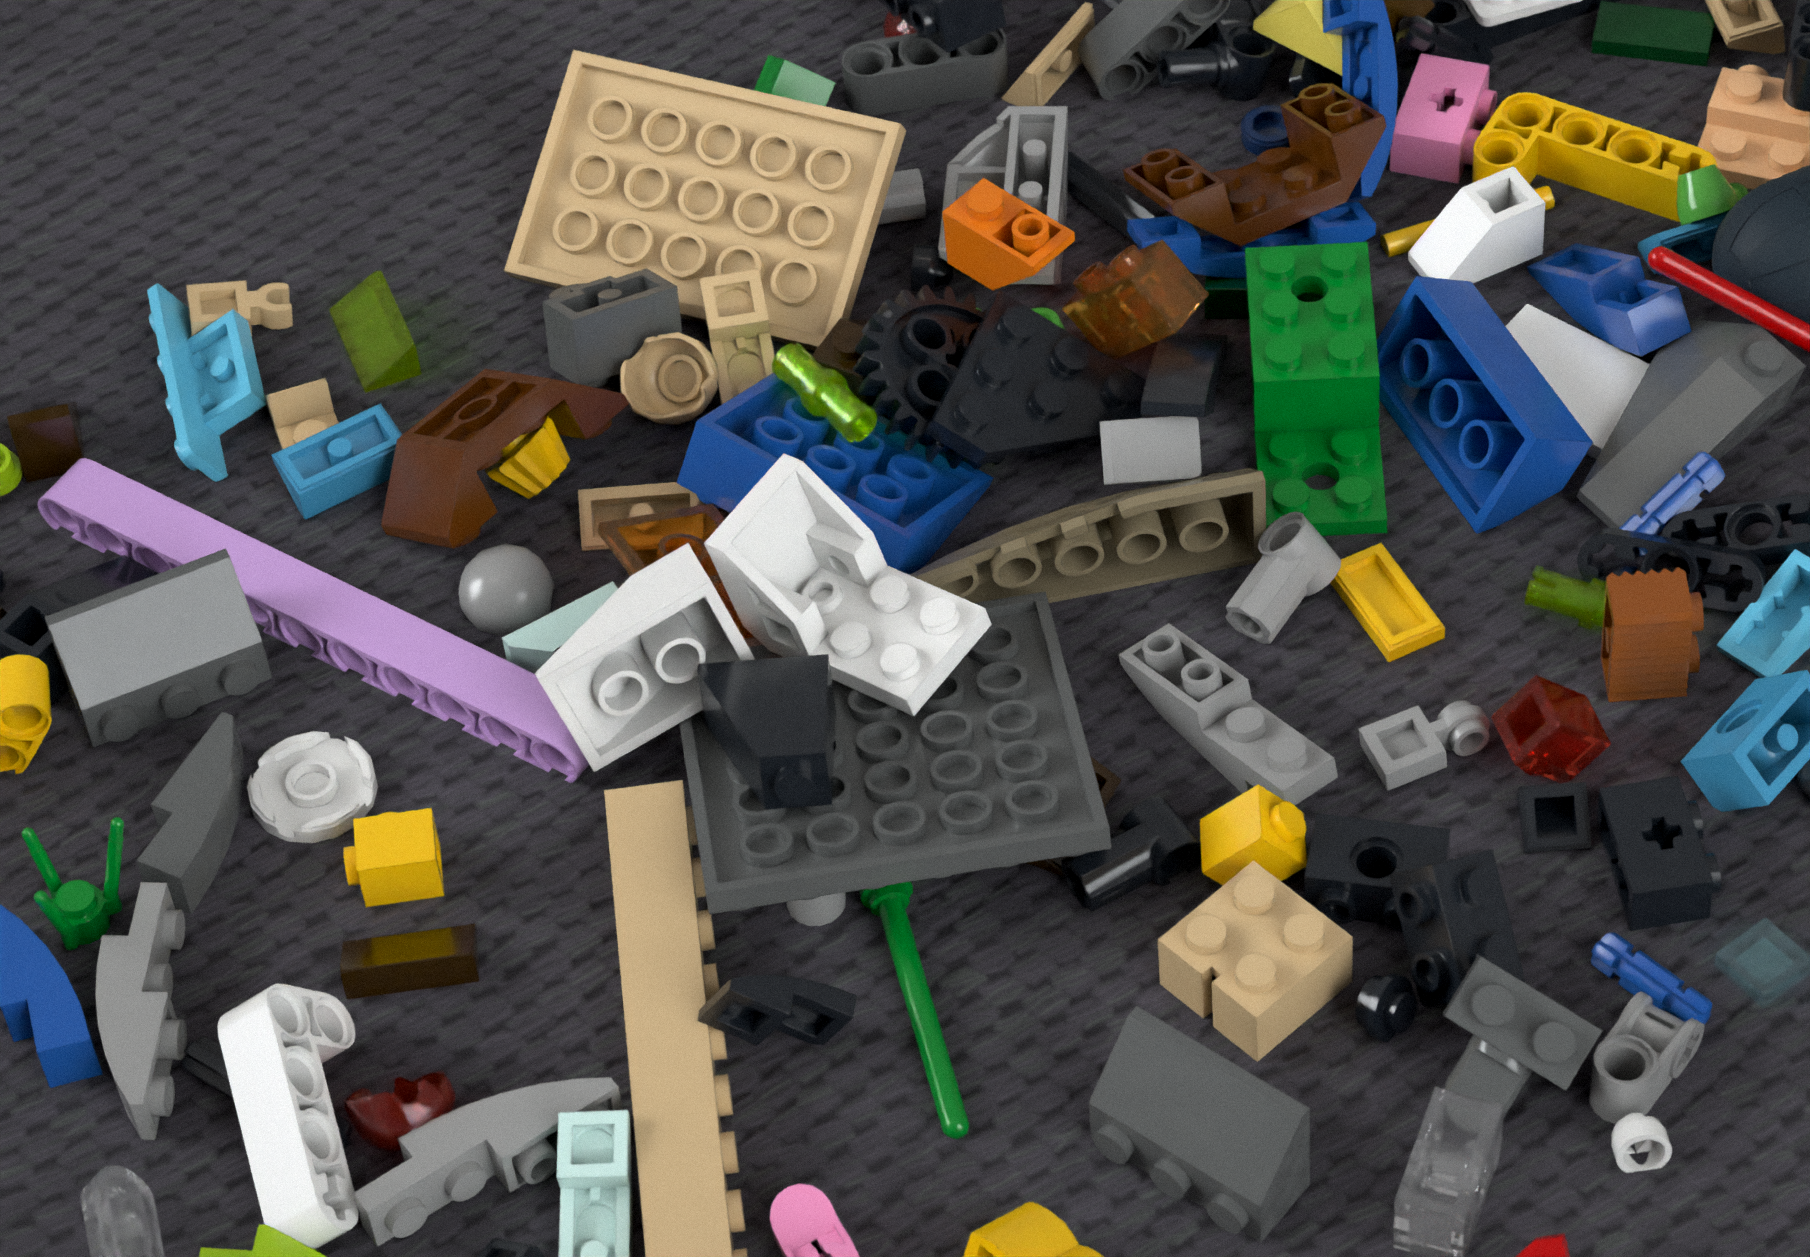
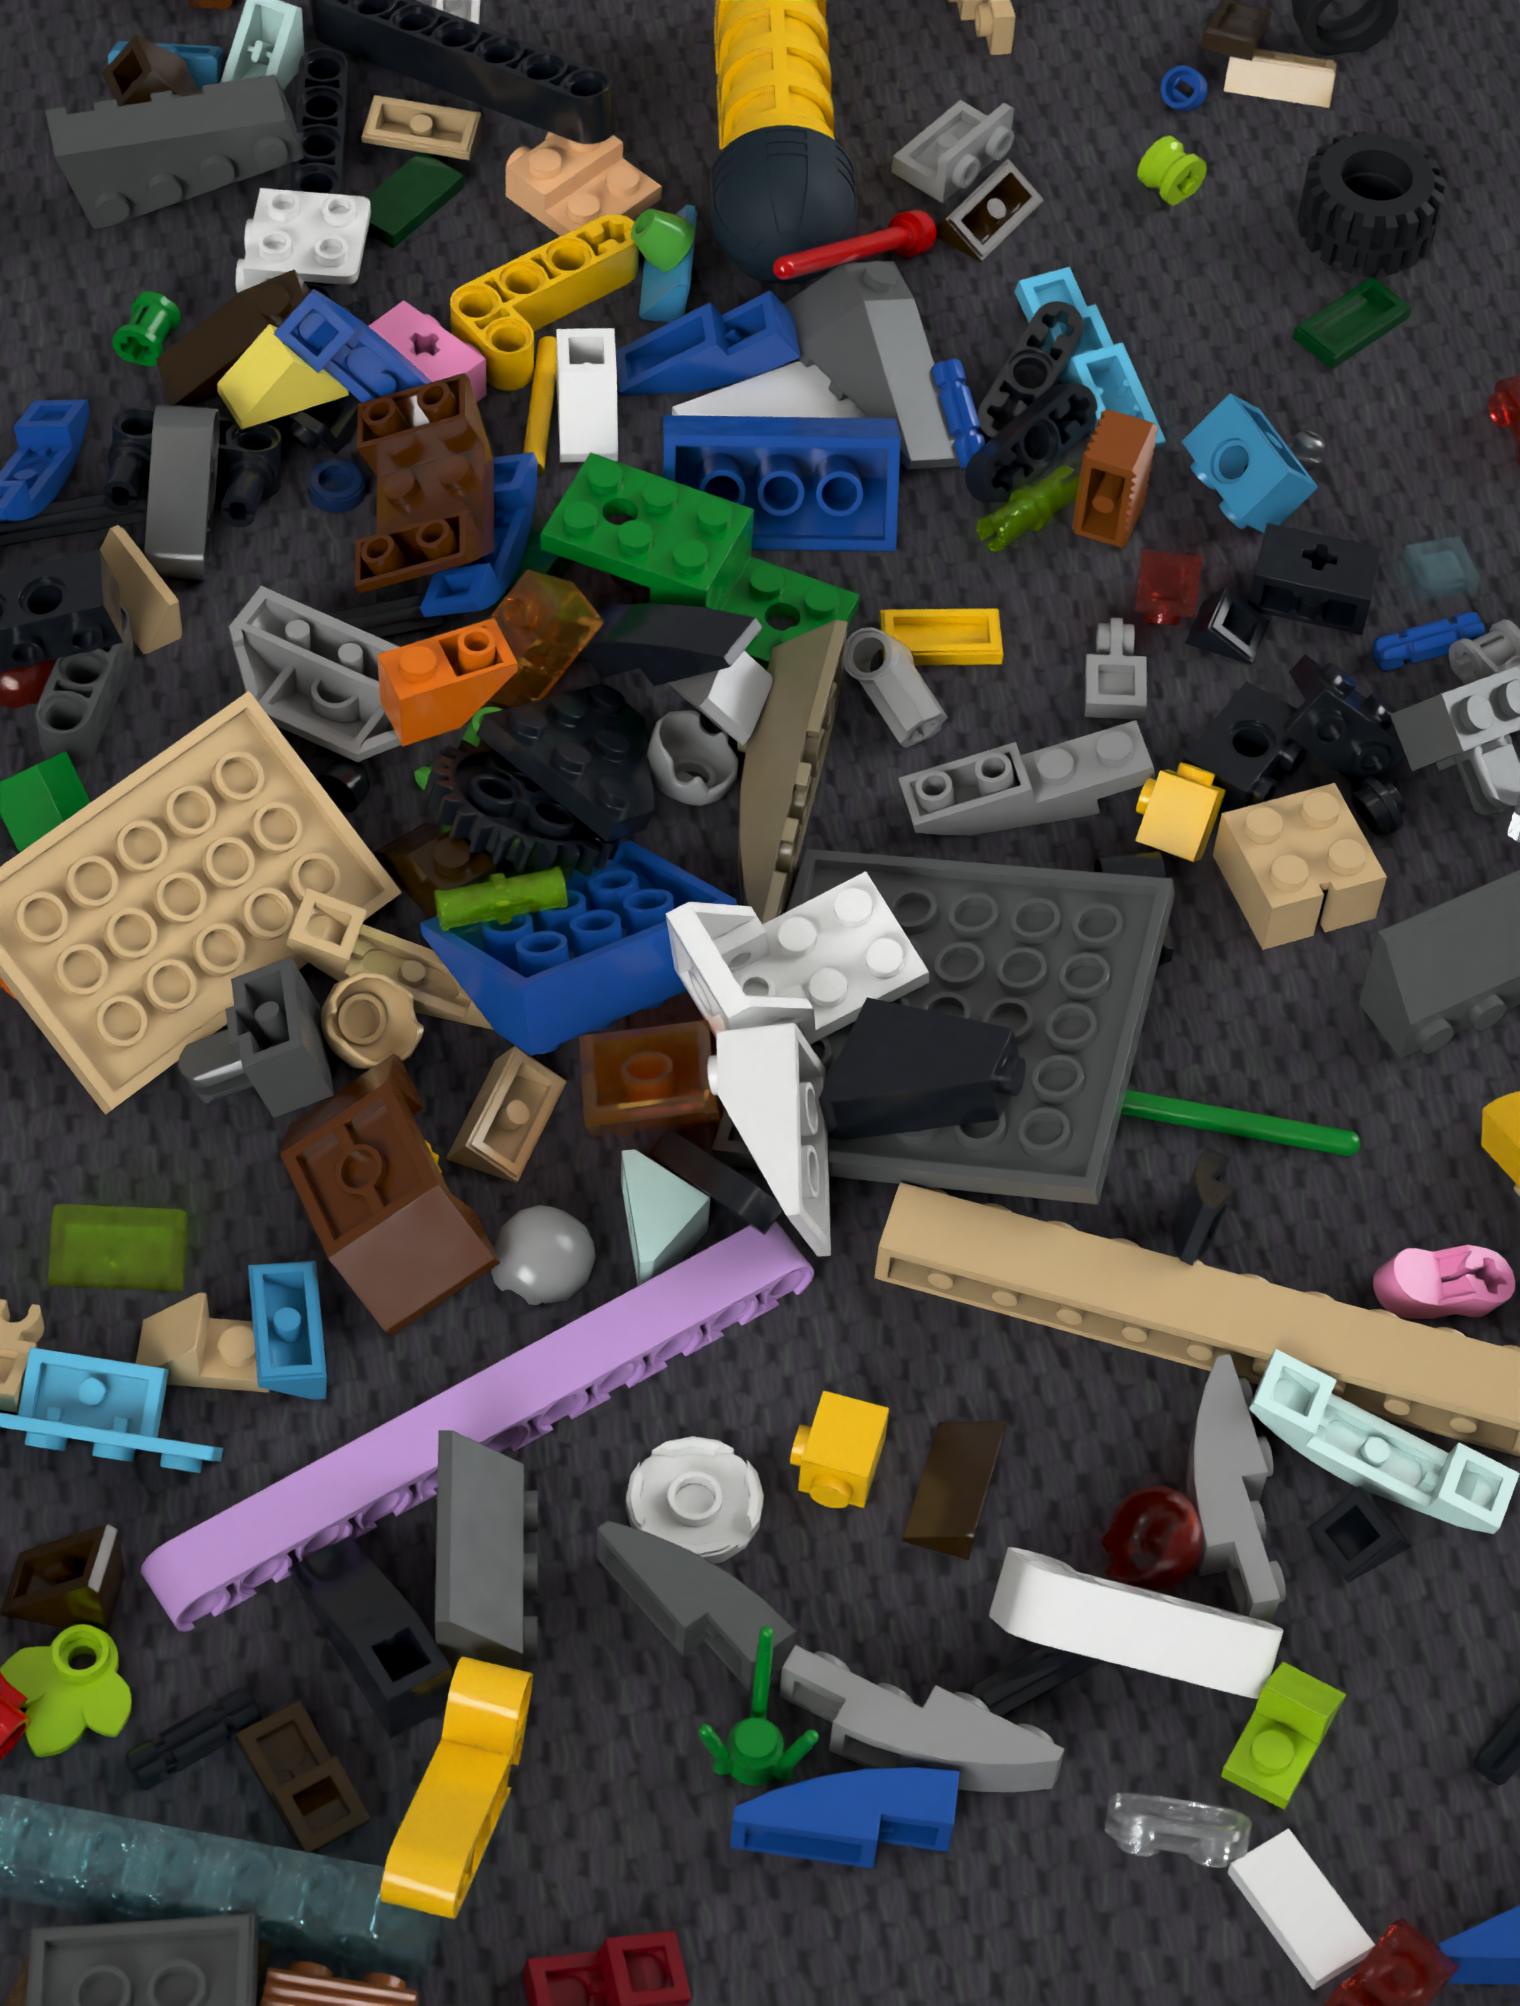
camera: 75 degrees left, 5 degrees up
(1077, 466) = (683, 746): none -> light grey hair

